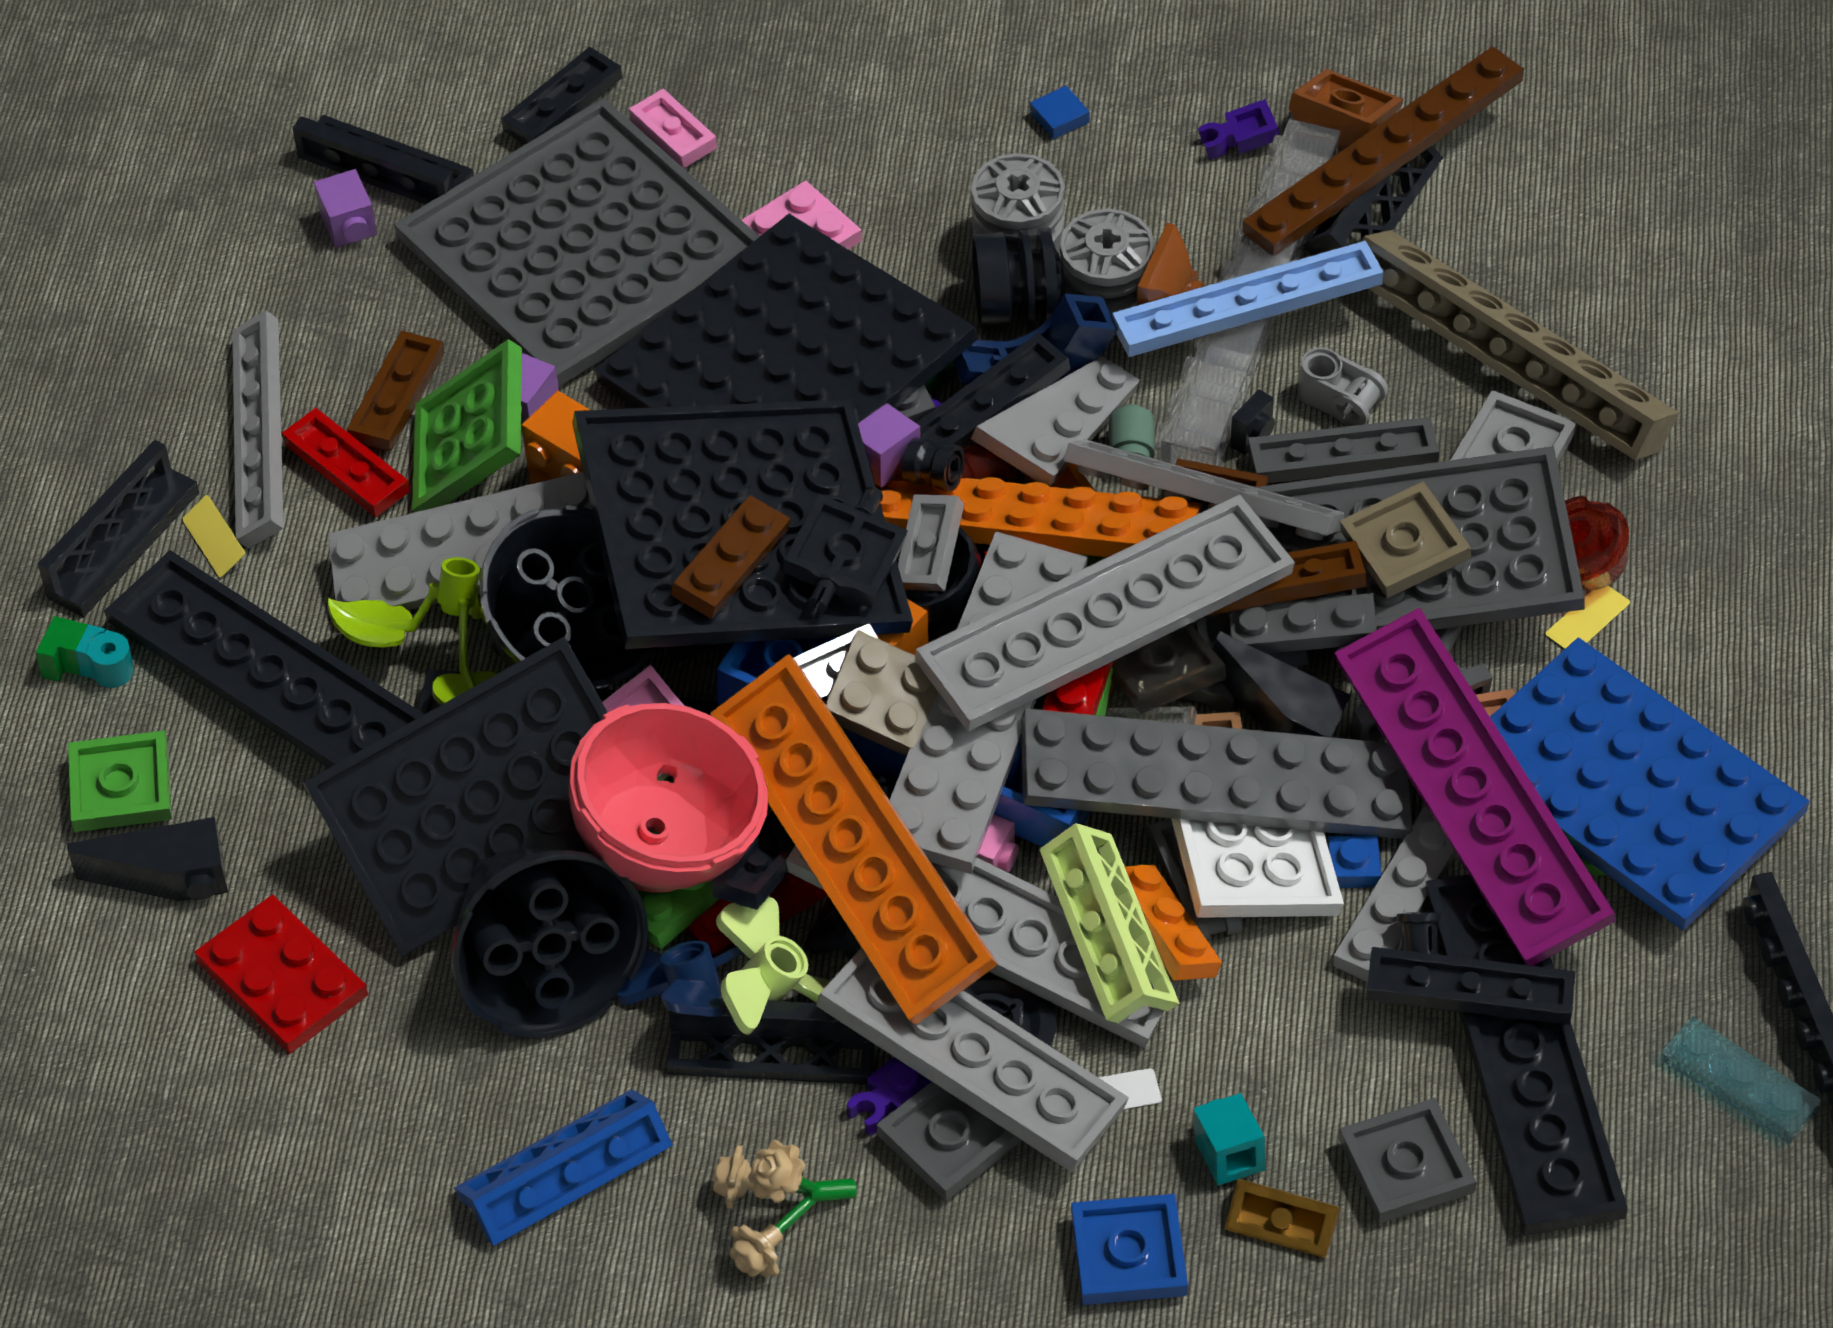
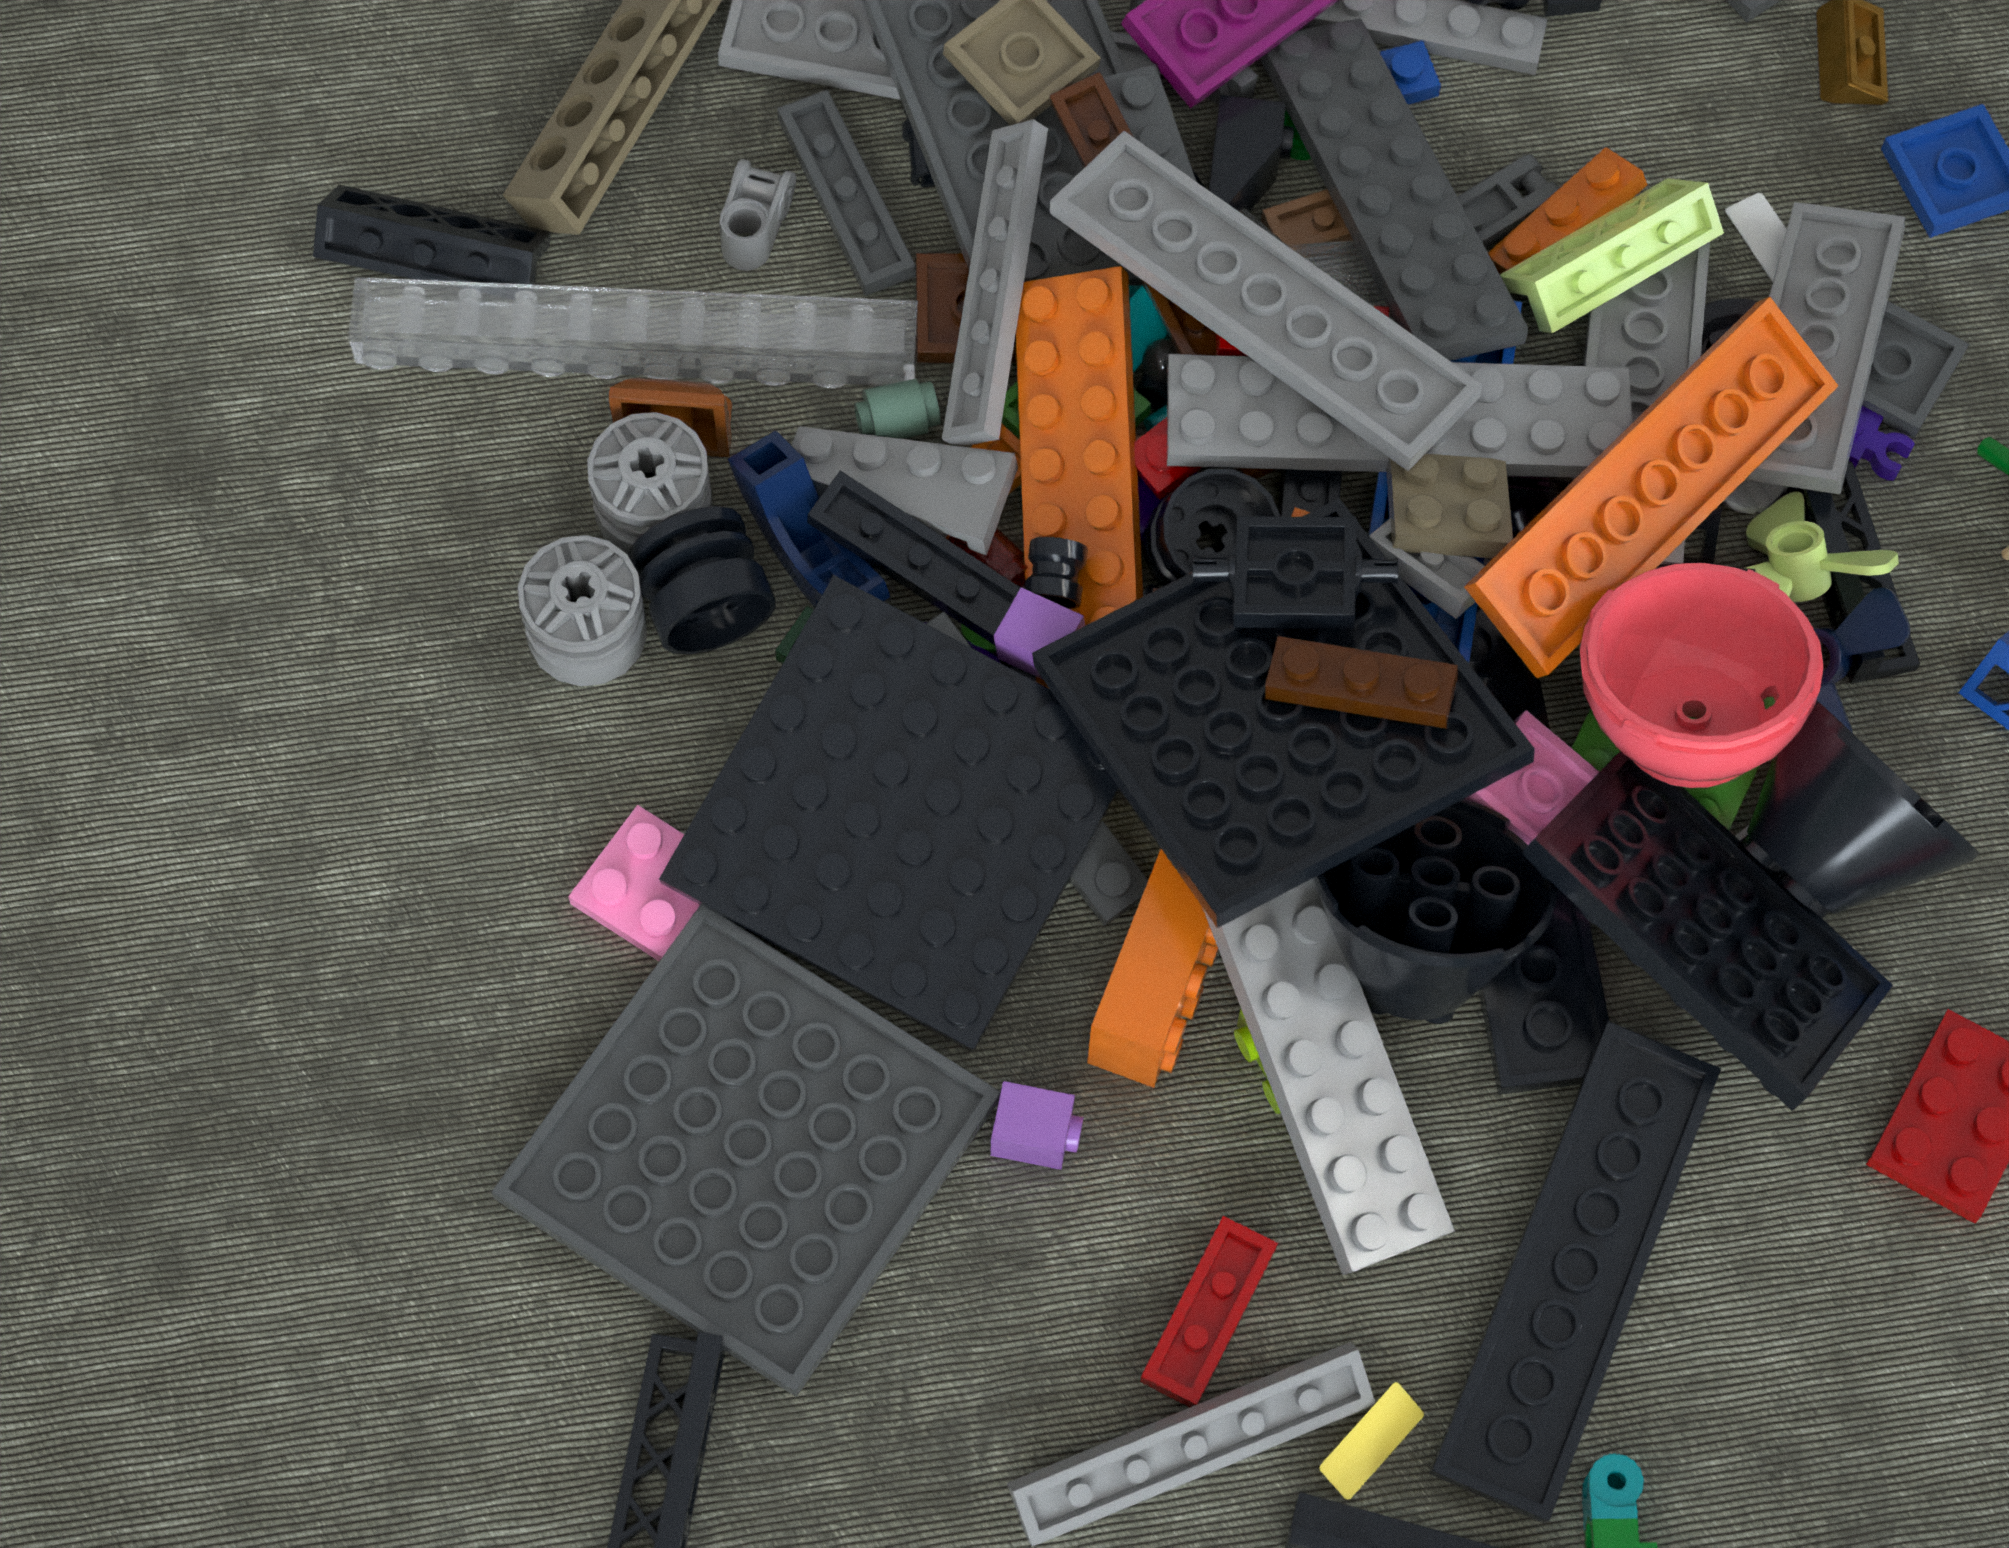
camera: 110 degrees left, 15 degrees up
(119, 781) = (1783, 1401): bright green plate -> none
(162, 861) = (1878, 1292): black slope -> none
(345, 208) = (781, 1469): medium lavender brick -> none
(383, 625) = (1543, 1012): lime plant -> none
(396, 390) = (1073, 1291): reddish brown plate -> none
(468, 428) = (1146, 1148): bright green plate -> none
(562, 95) = (495, 1254): black plate -> none
(673, 128) = (517, 1091): bright pink plate -> none
(930, 542) = (1201, 515): light grey plate -> none
(1059, 112) = (363, 628): blue tile -> none
(1229, 1138) = (1802, 104): teal brick -> none
(1244, 128) = (350, 401): dark purple plate -> none
(1247, 298) = (682, 303): light blue plate -> none
(1252, 420) = (833, 280): black plate -> none
(1257, 870) = (1482, 140): white plate -> none
(1342, 105) = (295, 295): dark orange slope -> none
(1382, 151) = (387, 216): reddish brown plate -> none

